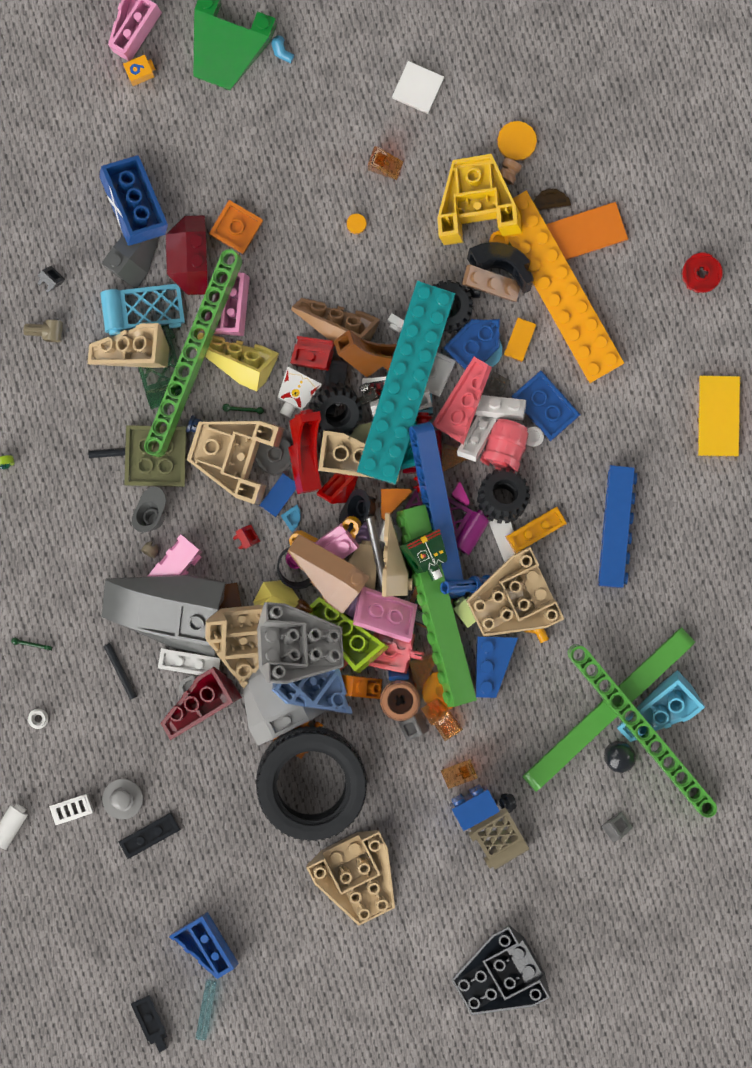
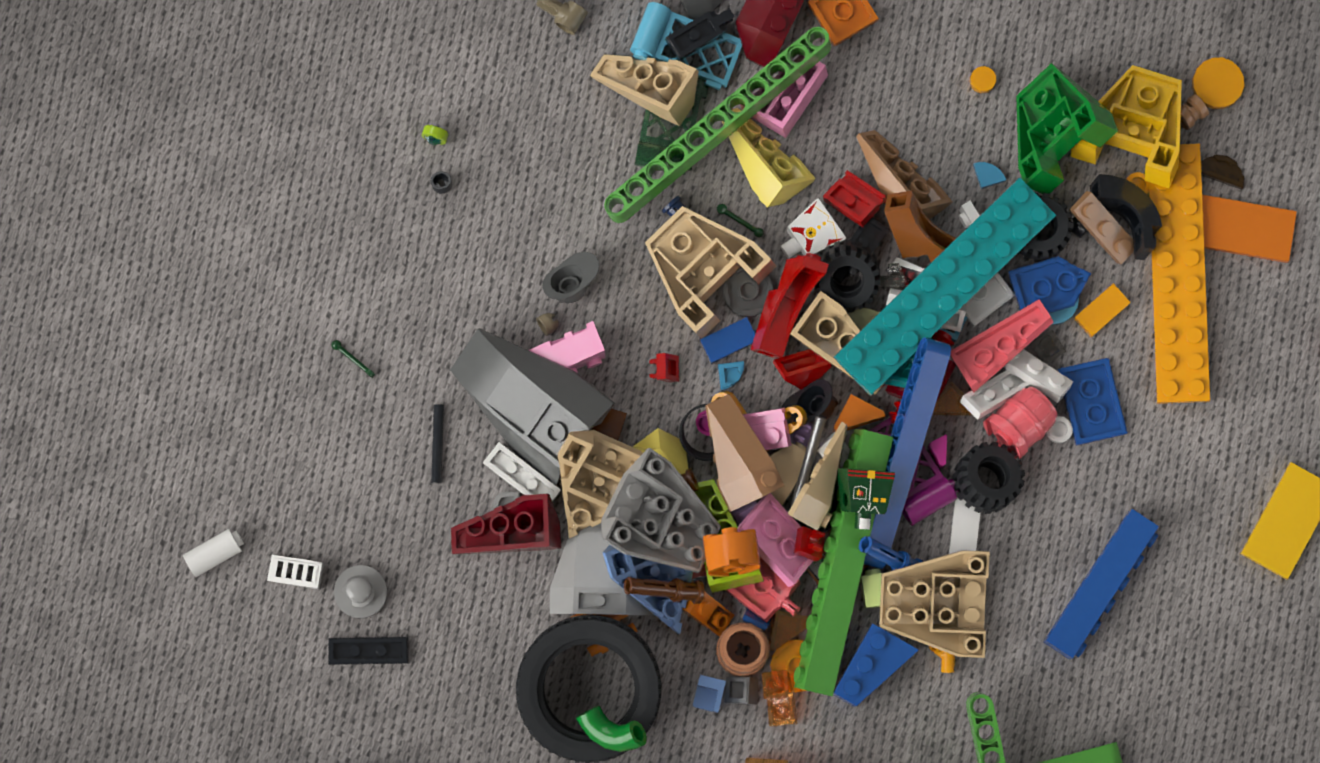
camera: 25 degrees right, 5 degrees down
(22, 495) = (441, 175): none -> black hinge
(31, 718) = (305, 447): white plate -> none
(106, 453) = (570, 193): black bar -> none
(146, 295) = (698, 33): none -> black hinge
(148, 470) = (596, 233): olive plate -> none
(334, 686) = (674, 589): none -> reddish brown pin
(342, 809) = (609, 734): none -> green cylinder
(358, 642) = (731, 552): none -> orange brick
(384, 163) = (1051, 28): clear orange slope -> none
(393, 741) = (709, 693): none -> medium blue panel
(394, 287) = (988, 174): none -> dark azure tile
(407, 605) = (809, 543): none -> red tile
(418, 230) = (1050, 121): none -> green wedge
(536, 530) = (1006, 538): light orange tile -> none

